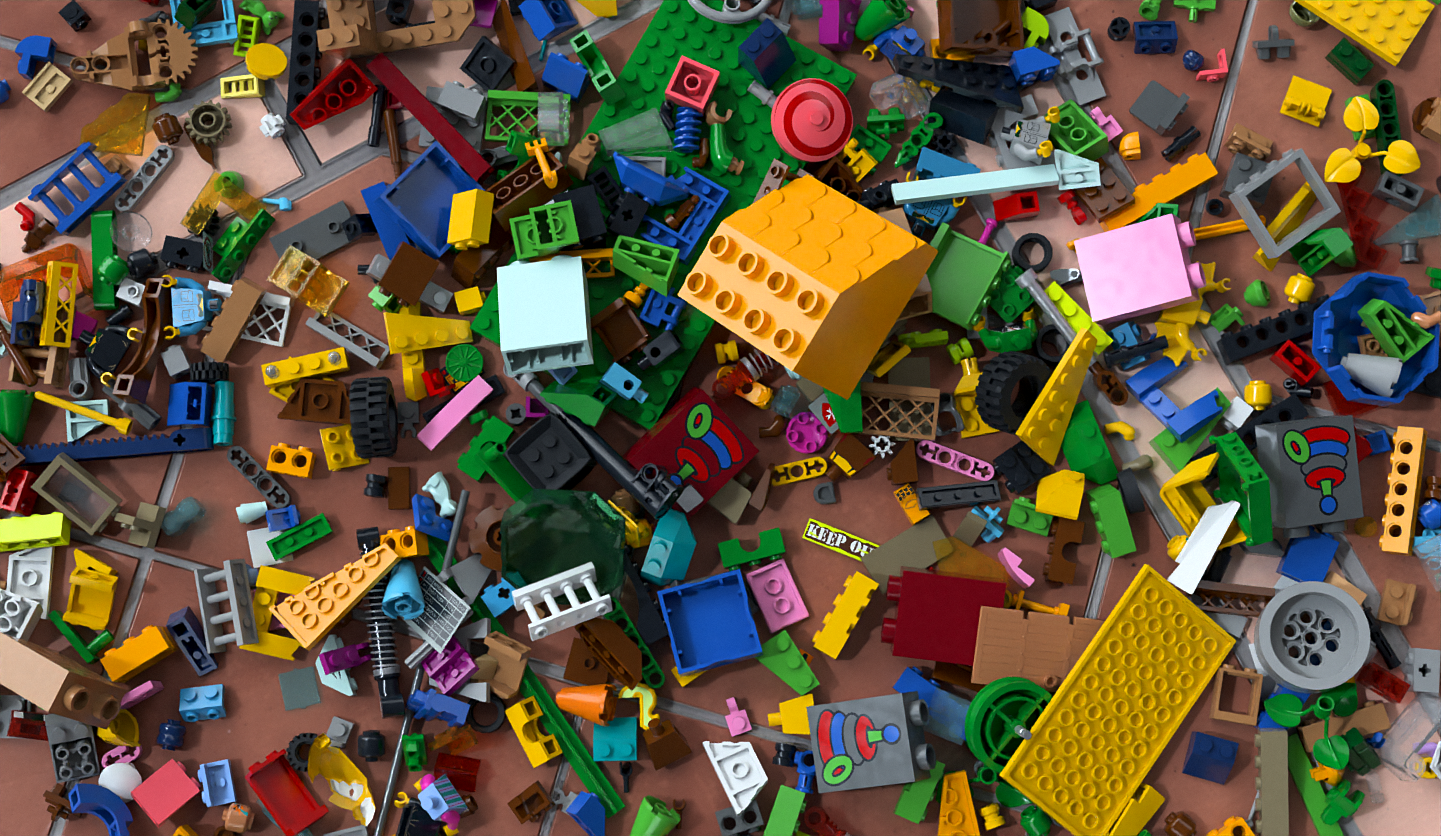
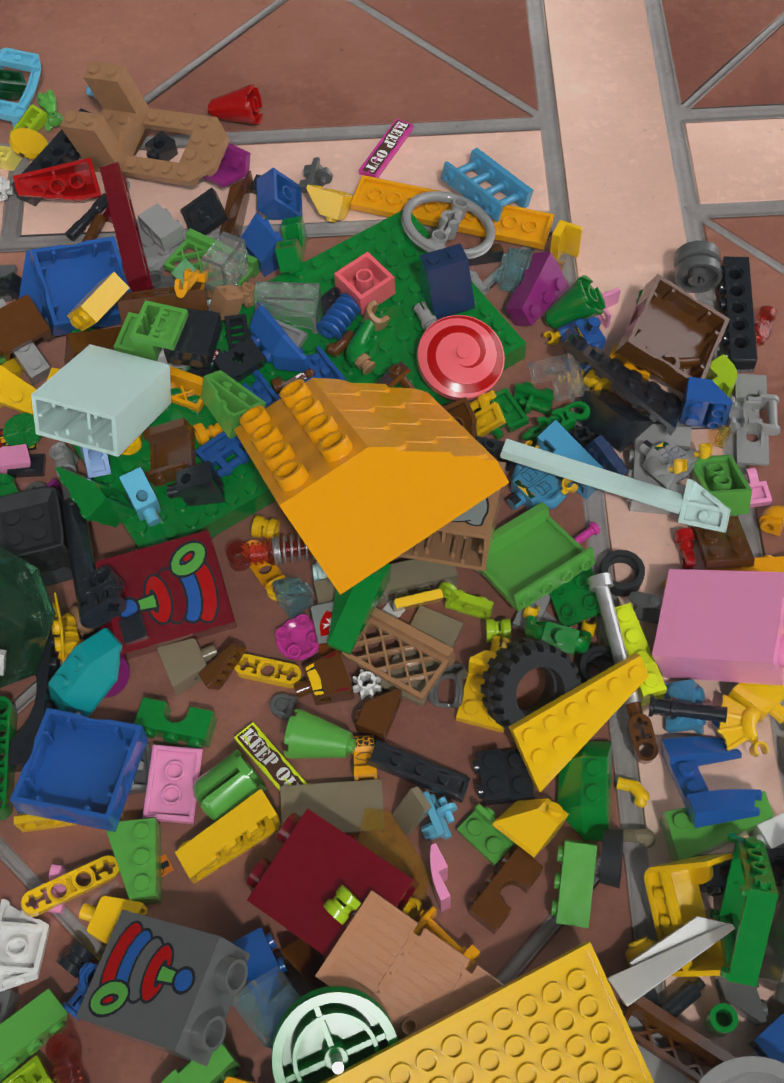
camera: 30 degrees right, 20 degrees down
(751, 708) = (69, 882): none -> yellow beam
(775, 429) = (270, 620): reddish brown arm -> none
(832, 584) = (226, 785): none -> bright green cylinder
(871, 508) = (316, 738): none -> bright green cone
(953, 464) = (438, 735): bright pink beam -> none
(964, 630) = (337, 909): none -> lime wheel
(975, 154) = (605, 455): none -> dark blue bracket
(1016, 206) = (627, 522): red slope -> none
(1058, 85) = (722, 436): none -> clear yellow tile
(1253, 568) = (721, 1020): none -> green brick

